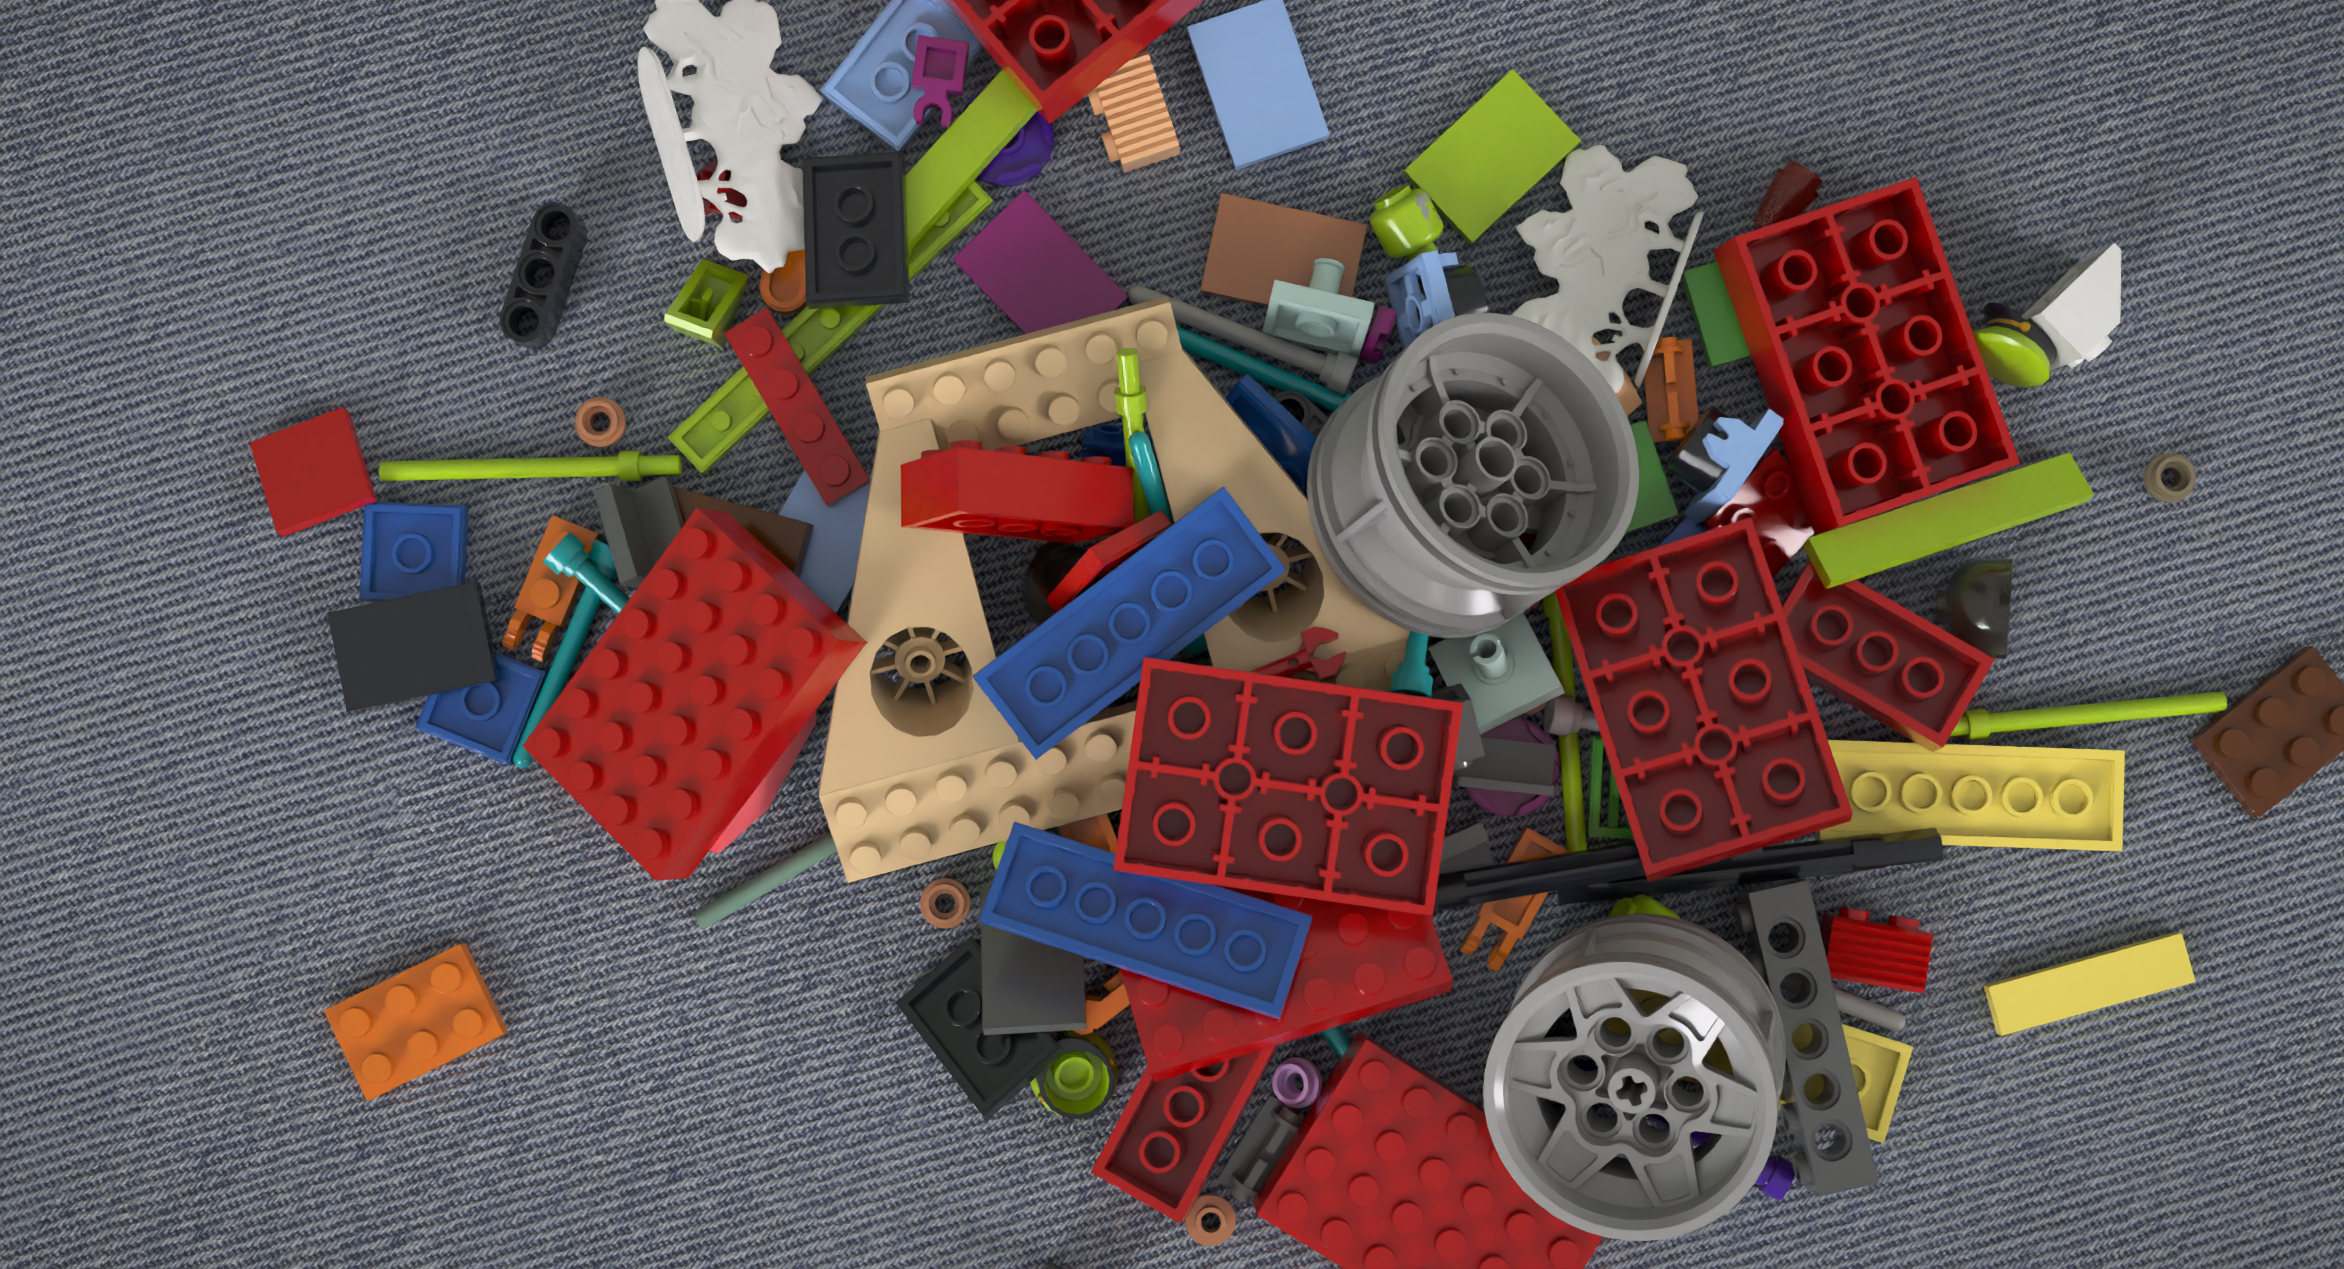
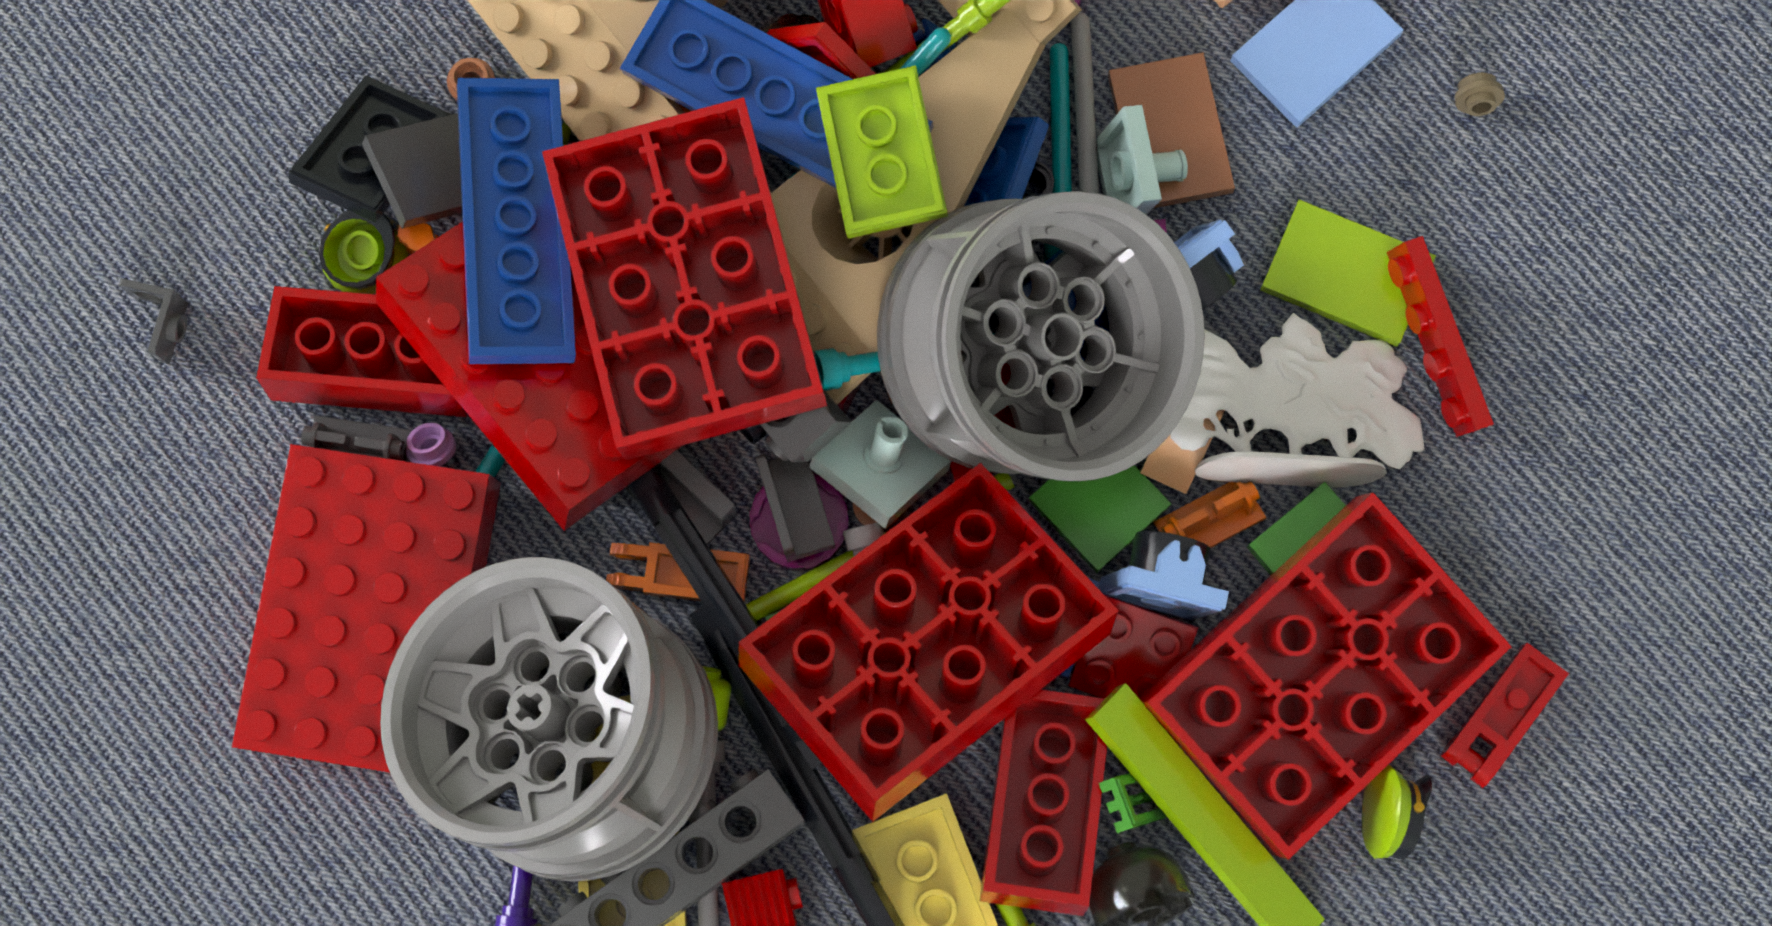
camera: 75 degrees right, 10 degrees down
(1215, 1204) = (285, 434): nougat plate -> none
(1235, 547) = (881, 152): none -> lime tile
(1301, 660) = (809, 266): red bar -> none
(1406, 222) = (1254, 217): lime head -> none
(1582, 103) = (1444, 350): none -> red plate
(1788, 194) = (1447, 547): clear red cone -> none
(1900, 581) = (1125, 803): none -> bright green tile
(1959, 208) = (1505, 713): none -> red plate
(2081, 308) = (1458, 855): white slope -> none

